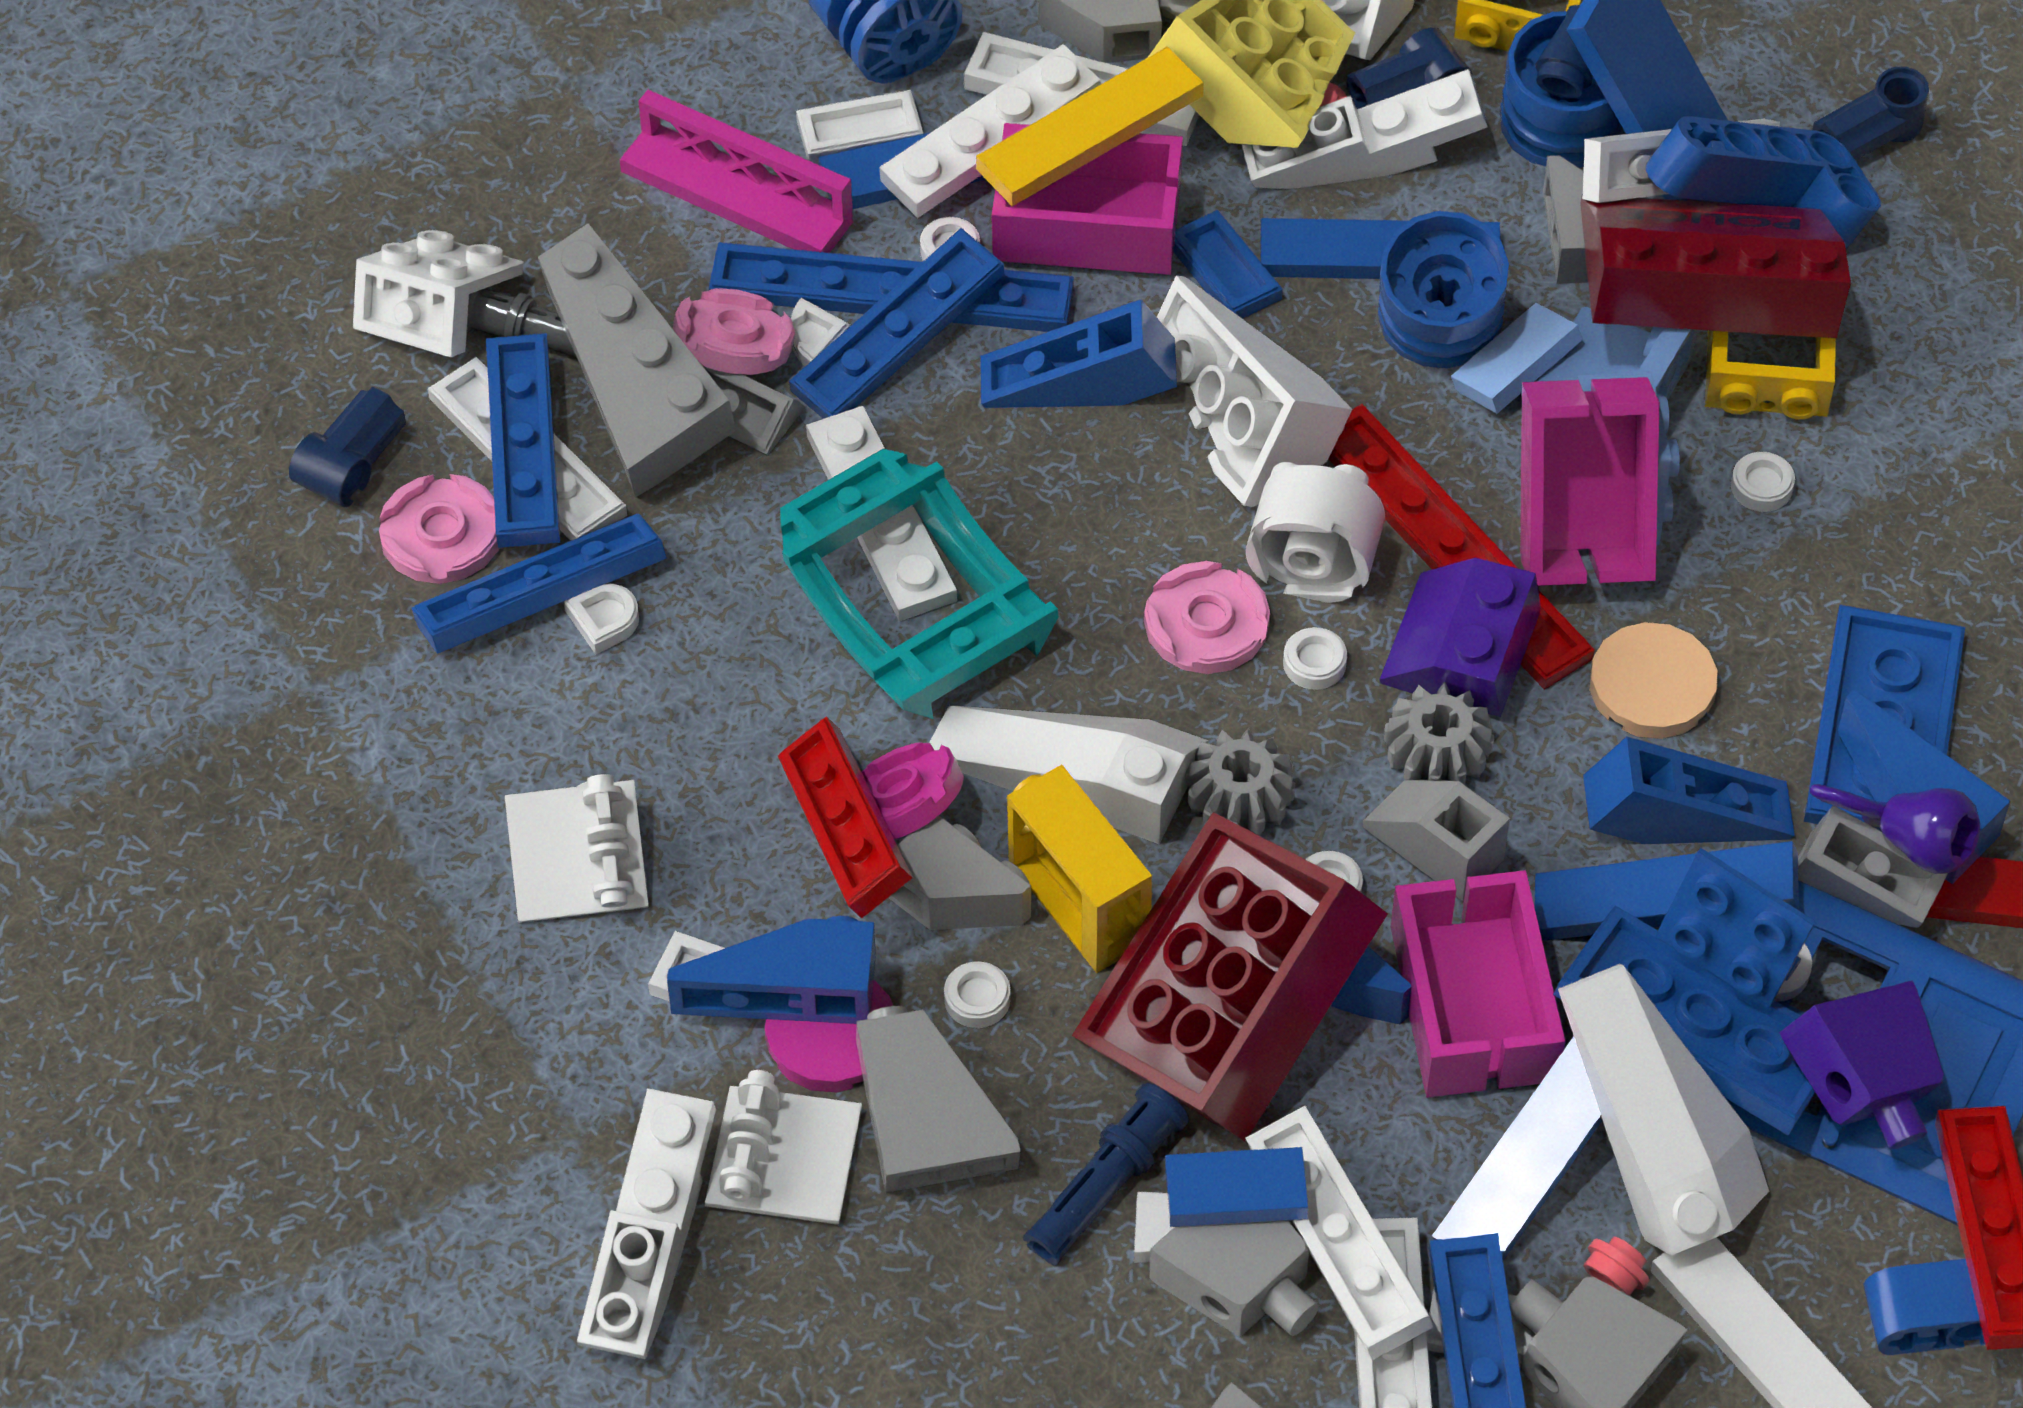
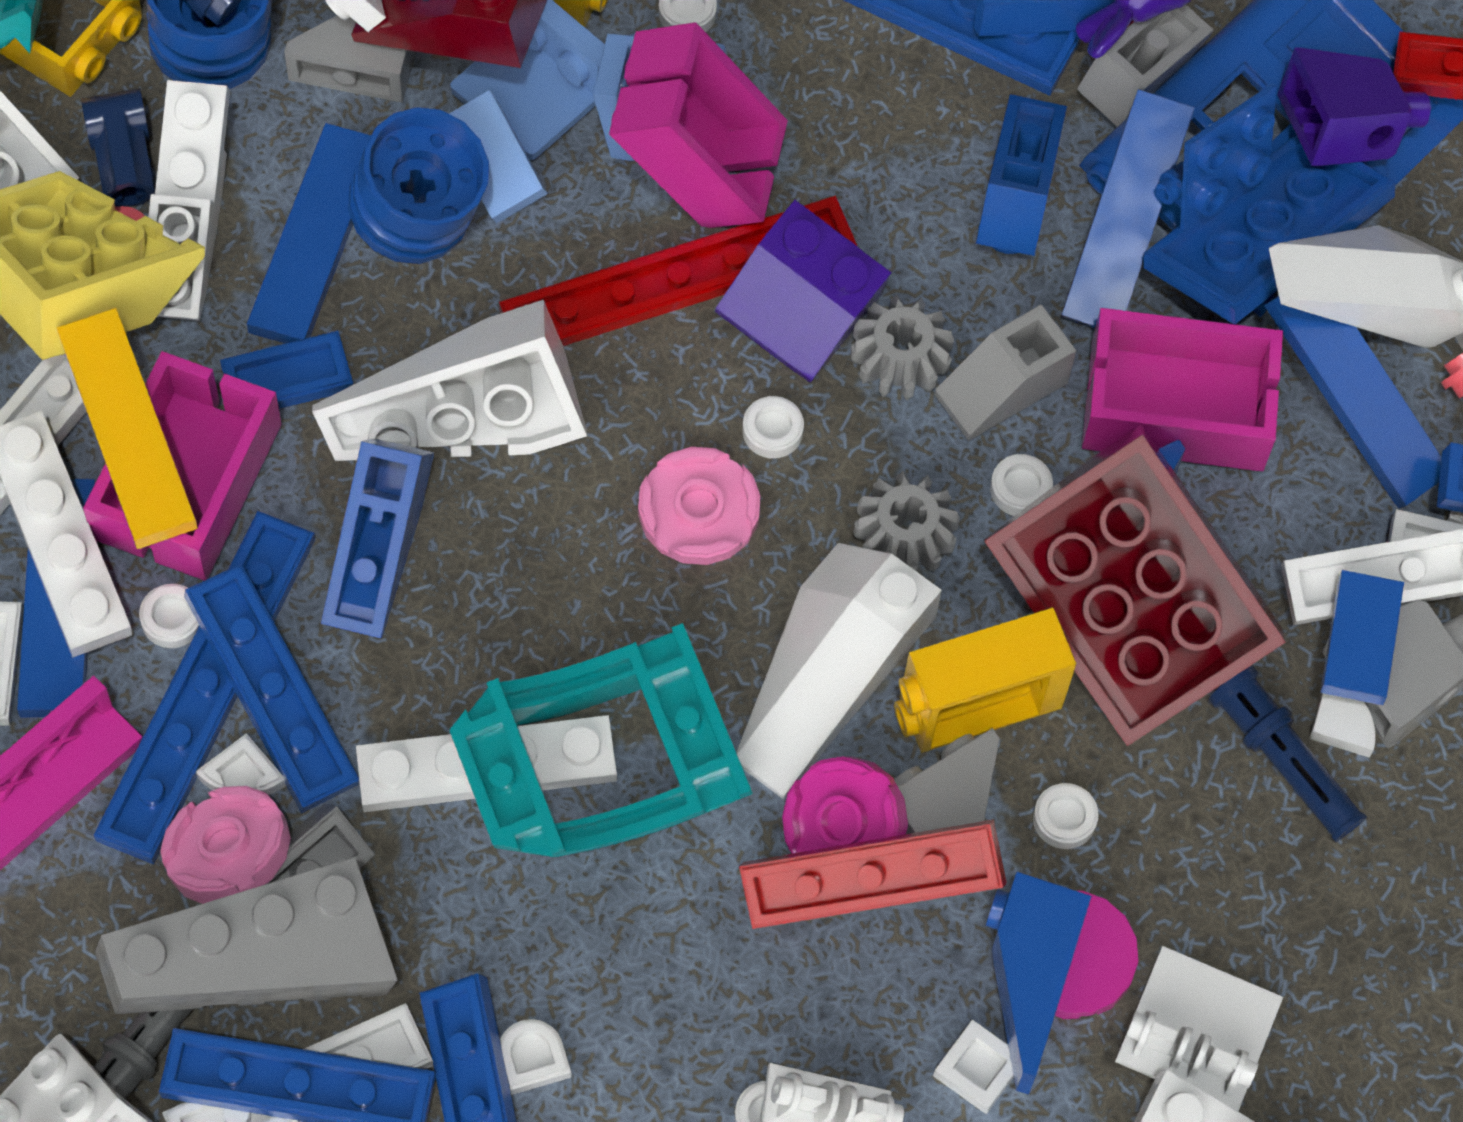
camera: 80 degrees left, 10 degrees up
(926, 1105) = (1197, 886): light grey slope -> none
(1316, 530) = (660, 374): white brick -> none
(1653, 680) = (877, 161): light nougat tile -> none

